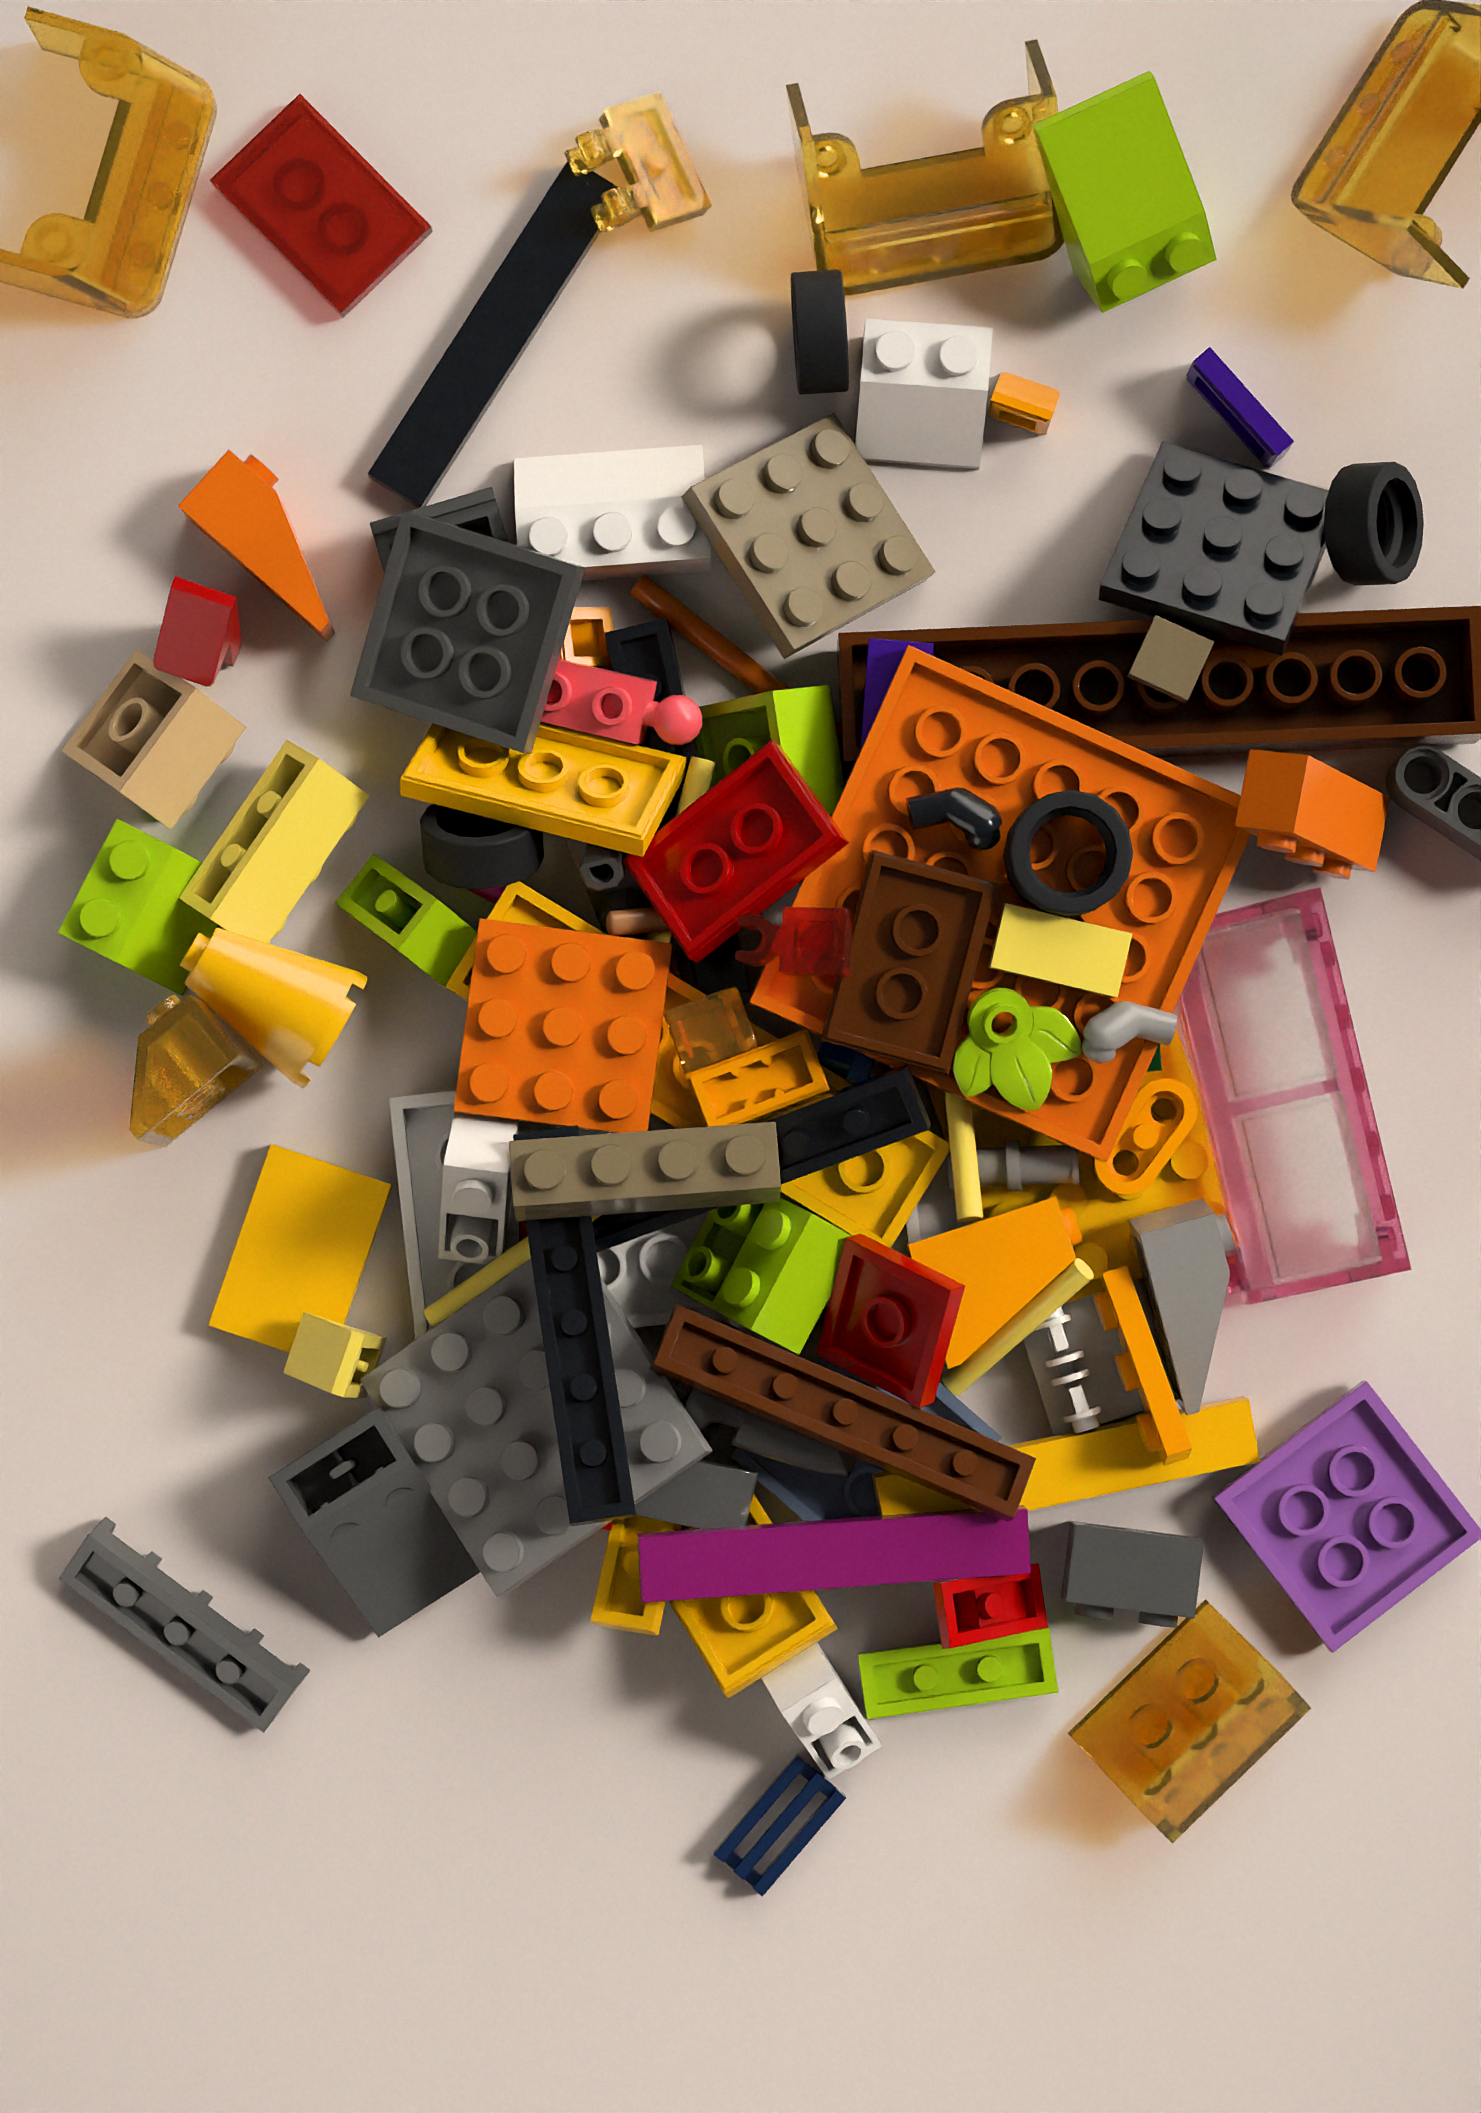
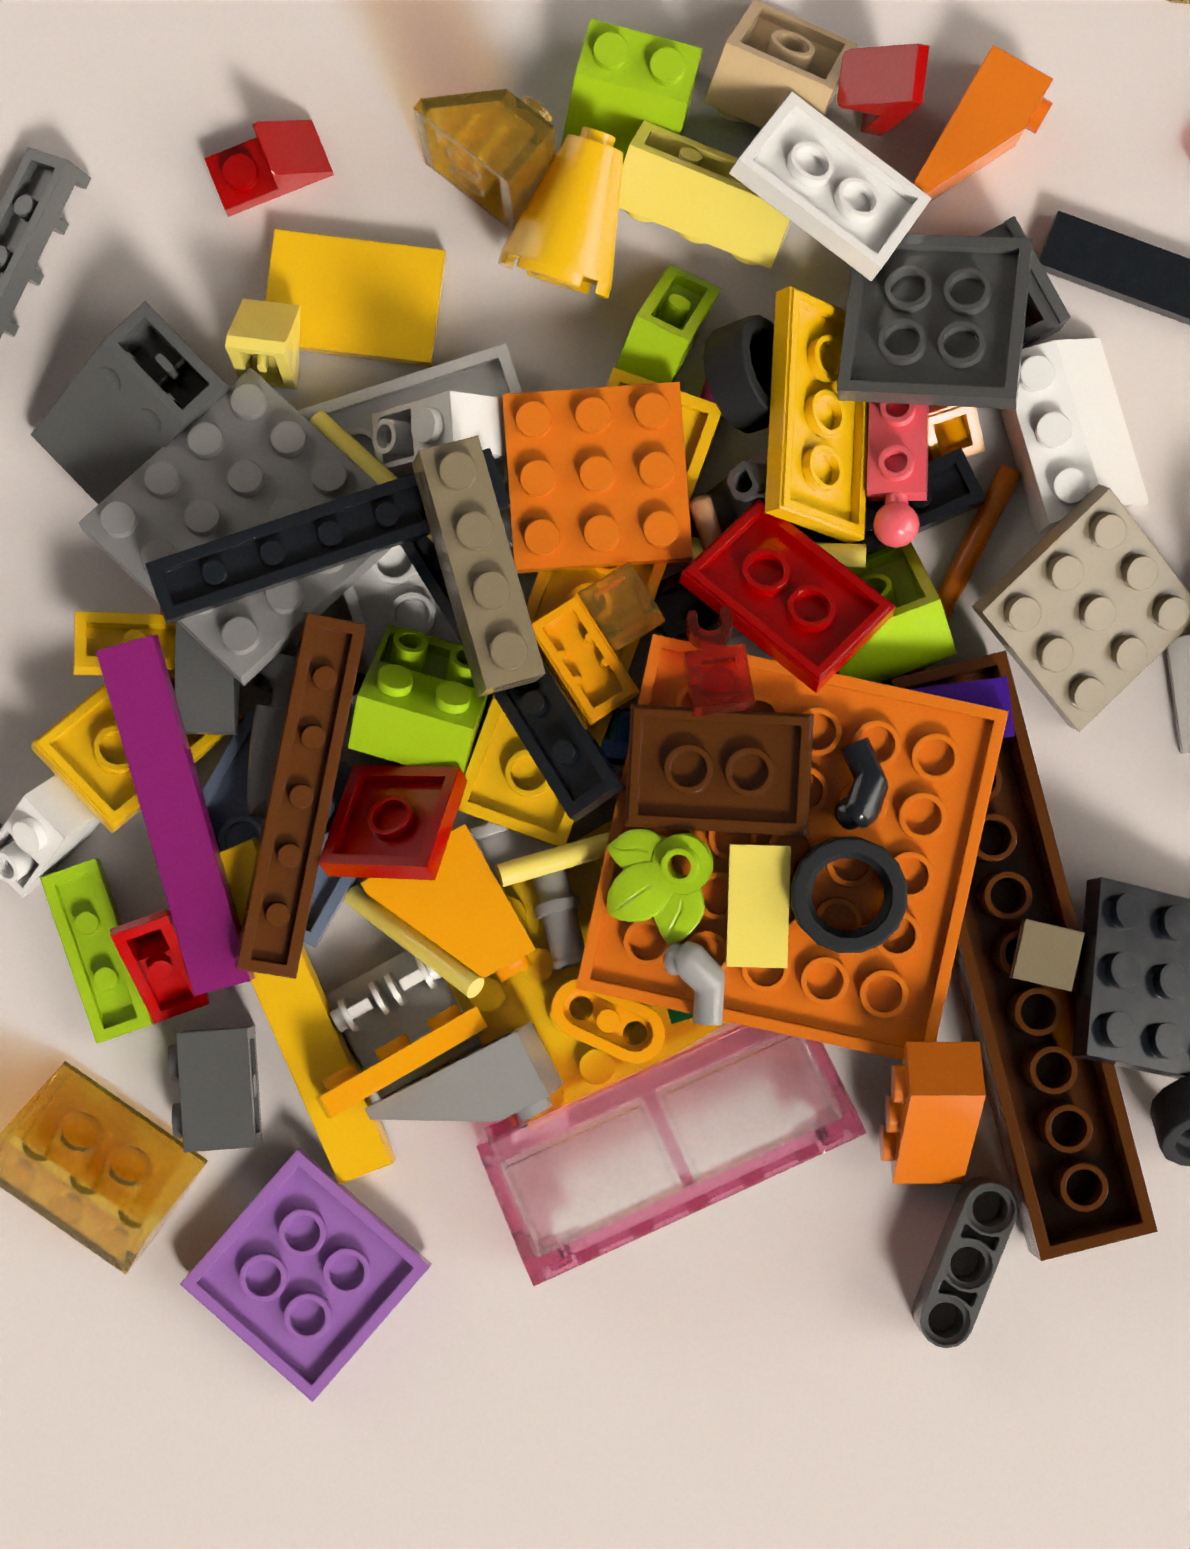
camera: 75 degrees right, 0 degrees up
(134, 1318) = (269, 166): none -> red slope
(301, 712) = (830, 186): none -> white plate

